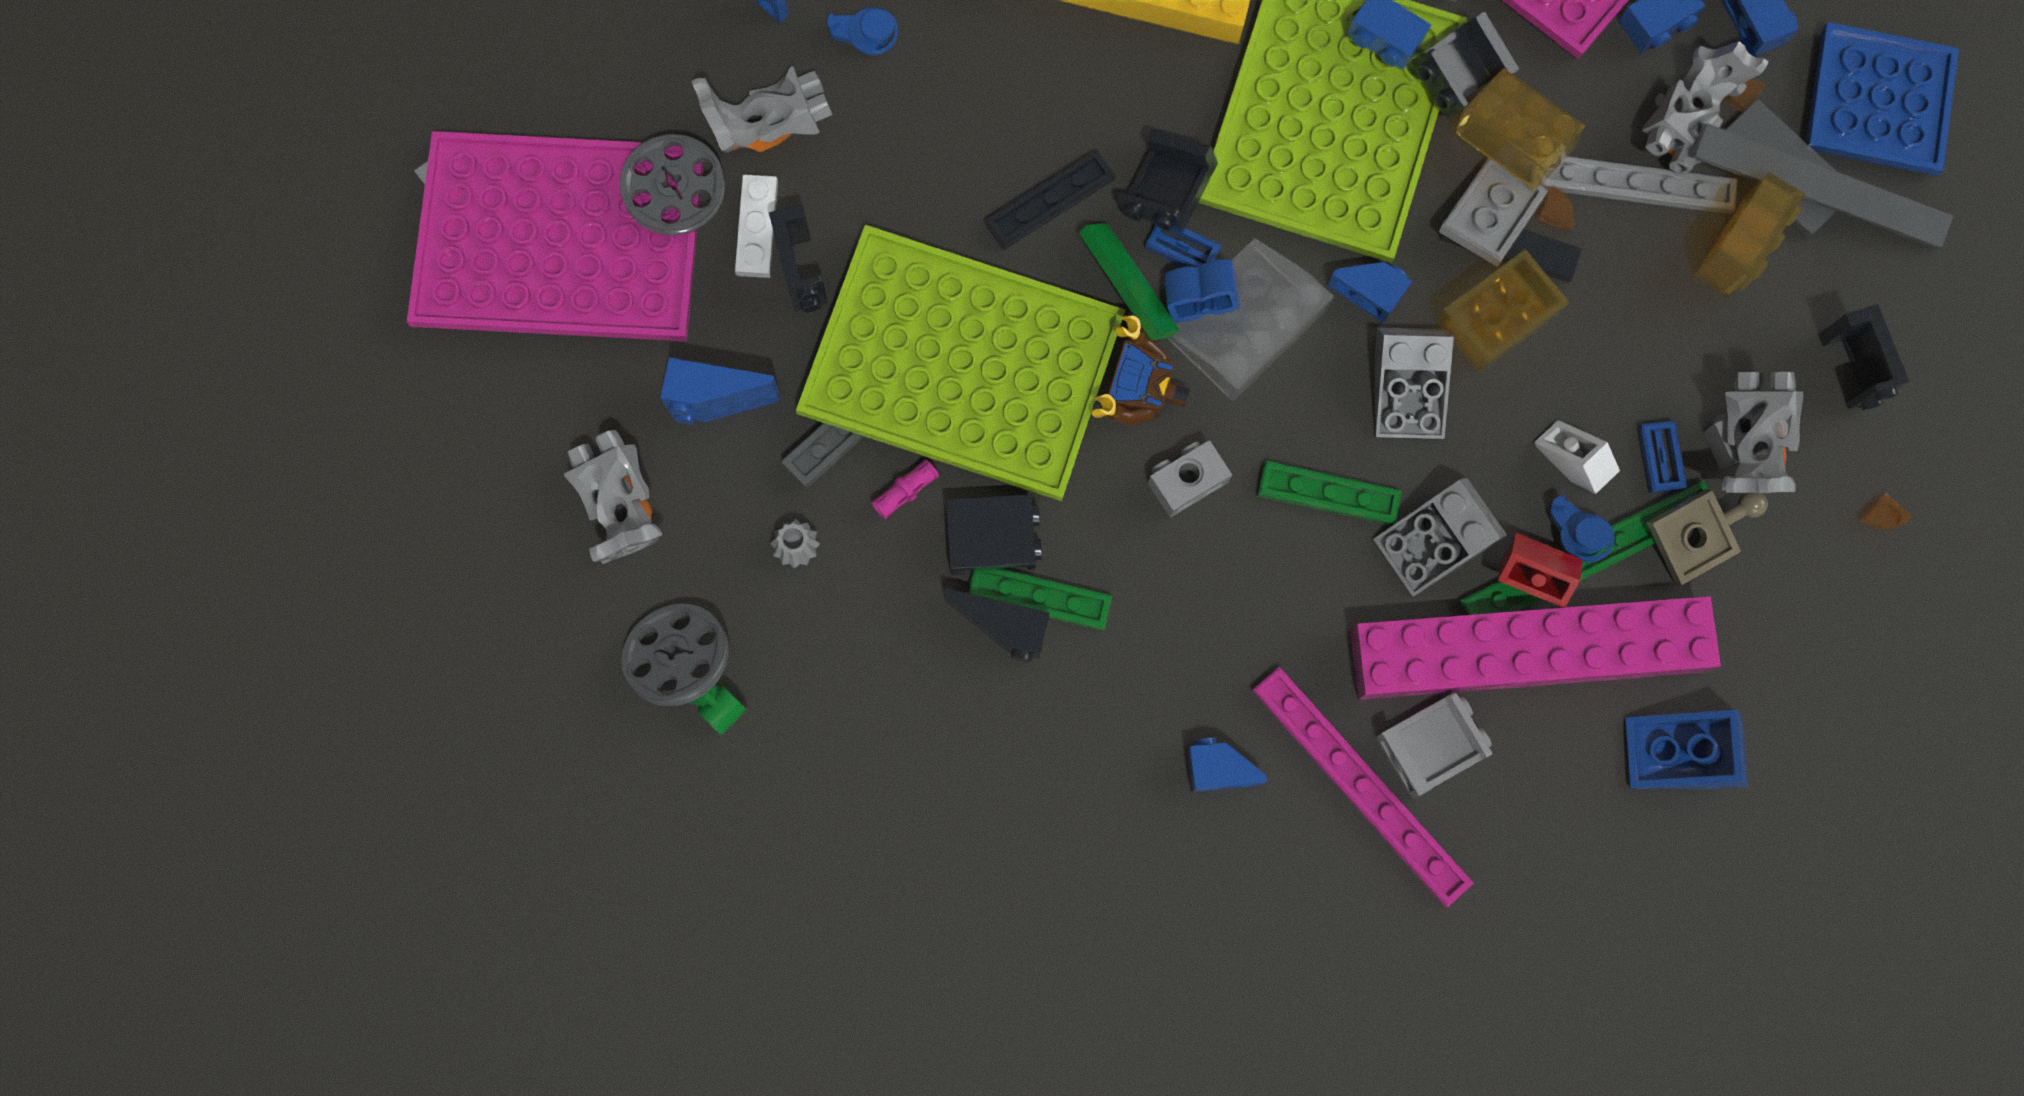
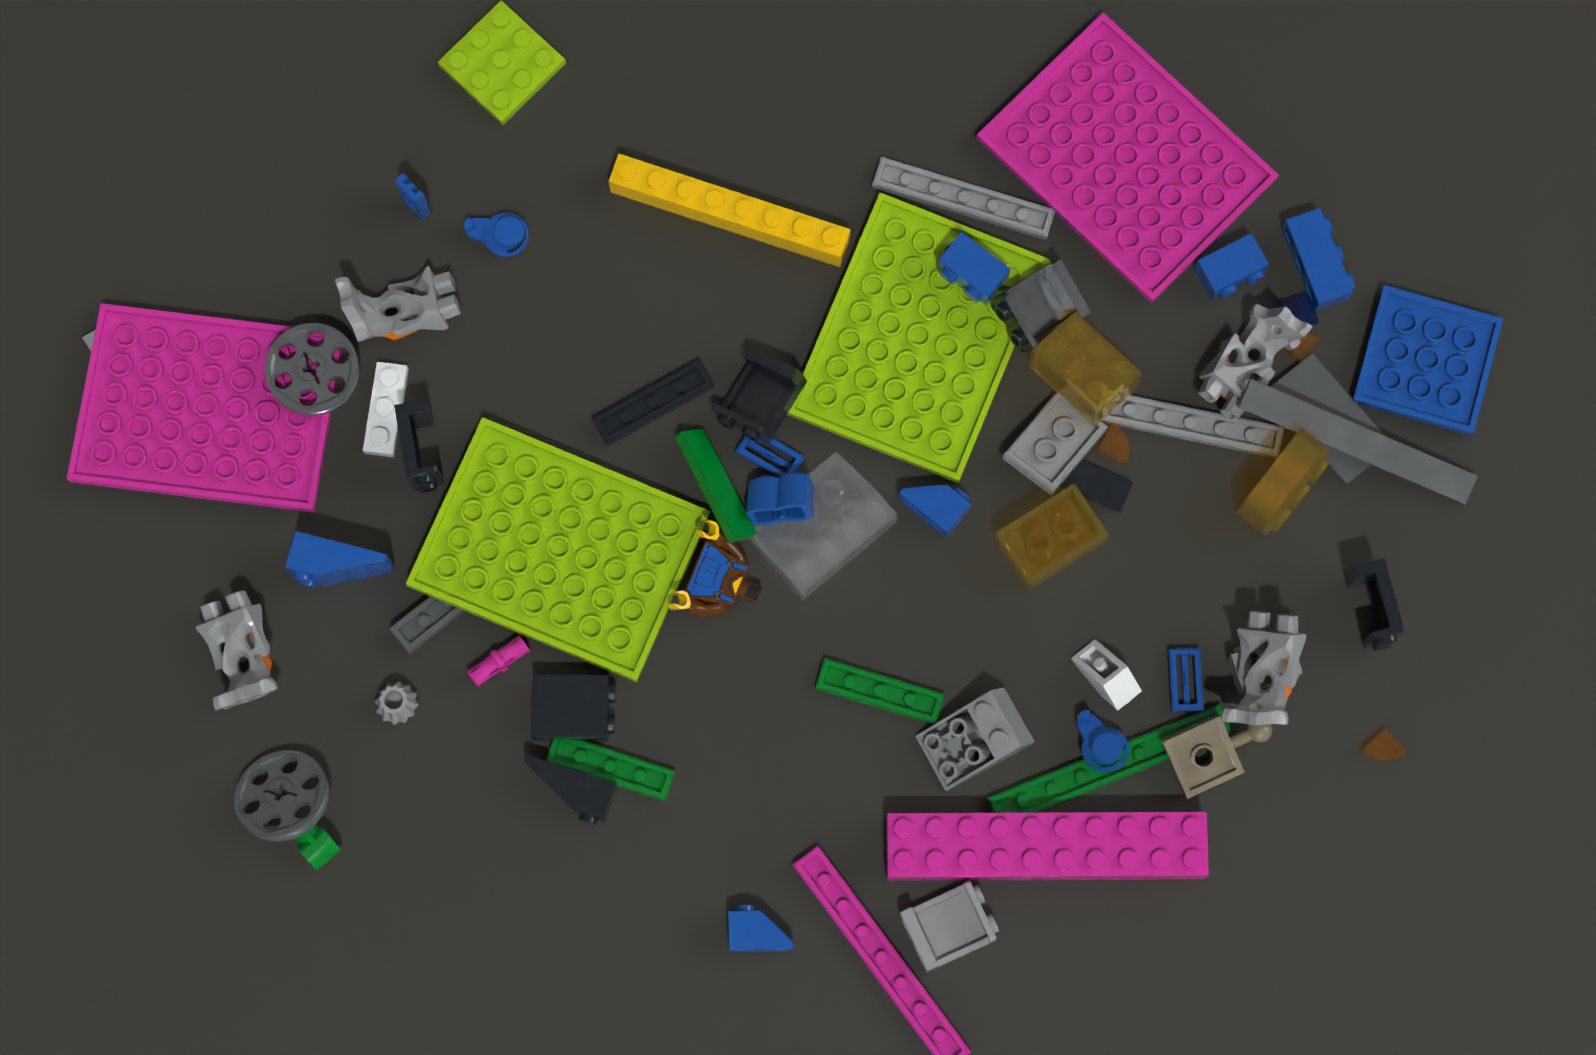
camera: 10 degrees right, 0 degrees up
(1178, 495) = (742, 685): light grey brick -> none
(1412, 382) = (963, 596): light grey slope -> none
(1540, 570) = (1056, 777): red brick -> none
(1687, 751) = (1175, 949): blue slope -> none

